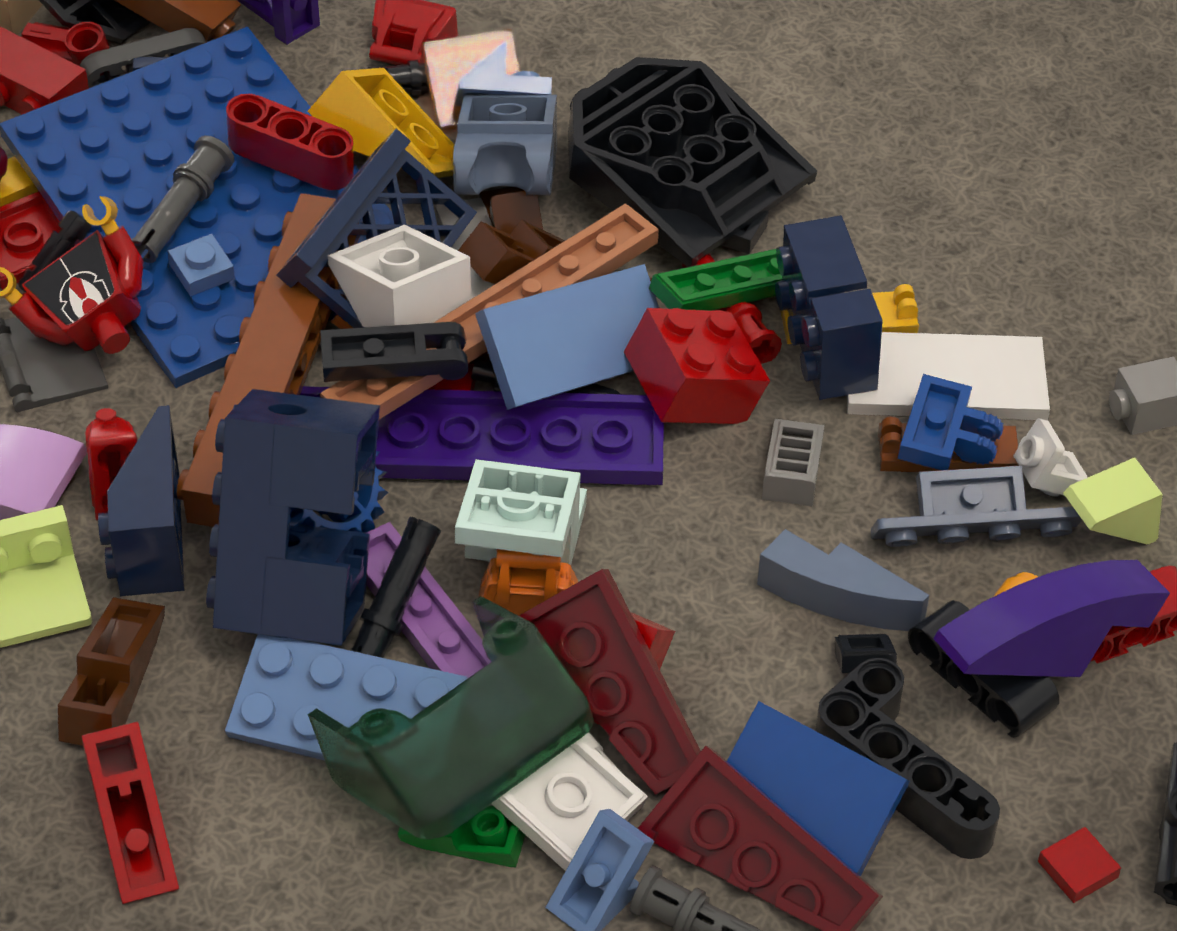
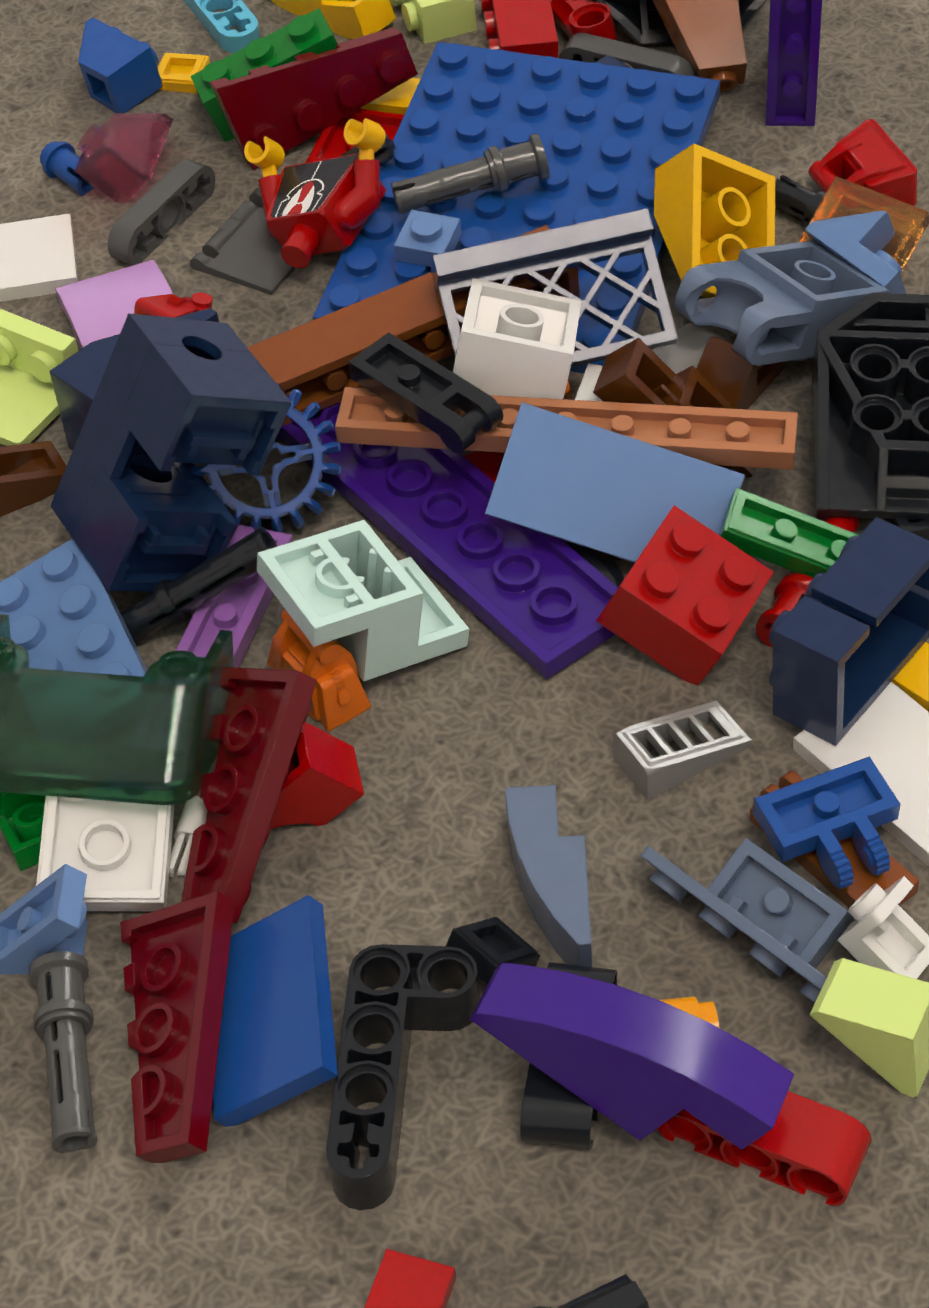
camera: 55 degrees right, 0 degrees up
(290, 141) = (604, 169): red beam -> none

